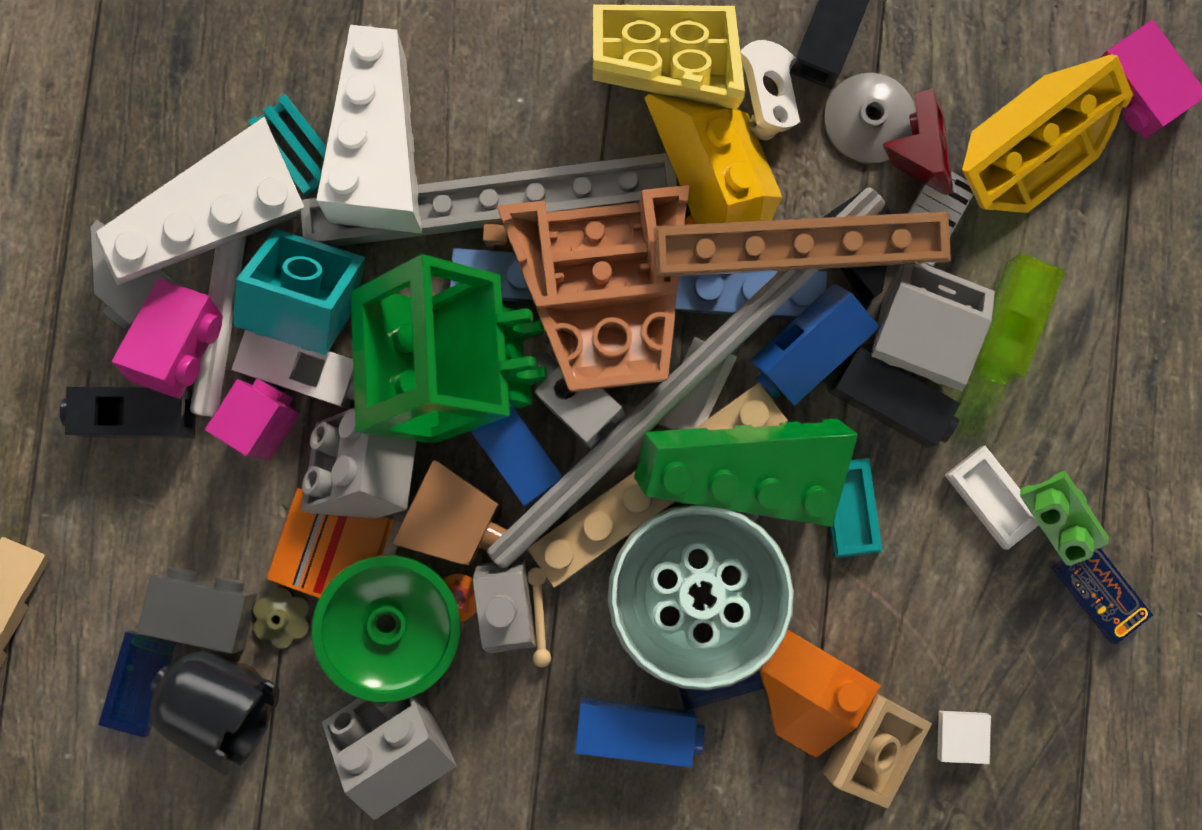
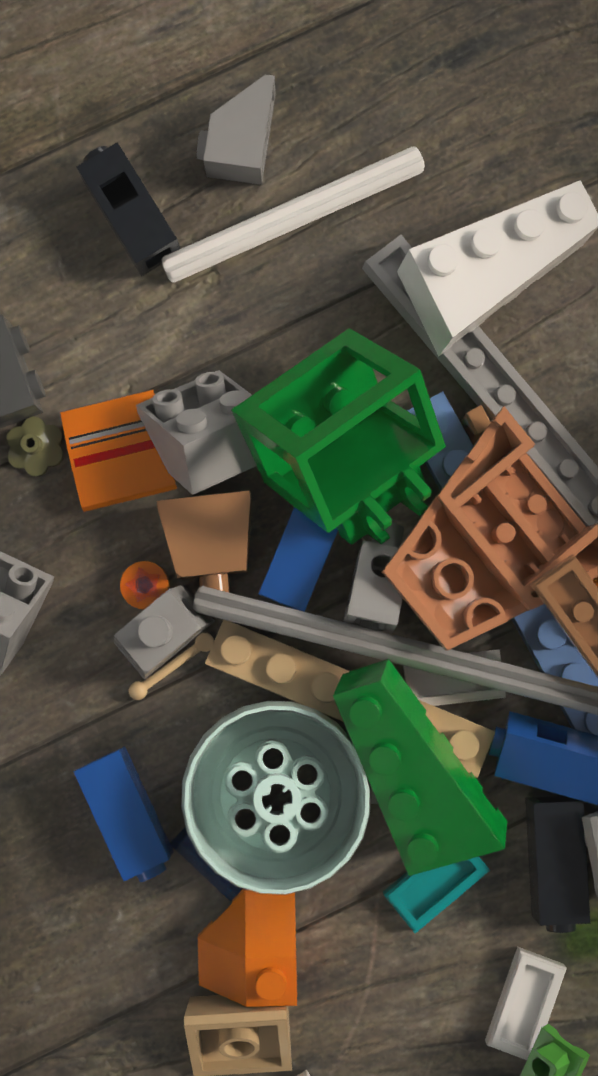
camera: 60 degrees right, 0 degrees up
(169, 338) = (211, 201): dark pink brick -> none
(206, 206) = (348, 162): white wedge -> none
(254, 418) = (188, 316): dark pink brick -> none
(273, 115) = (459, 165): teal tile -> none
(296, 369) = (256, 323): white brick -> none
(297, 291) = (320, 283): teal brick -> none
(393, 661) = (52, 560): green dish -> none

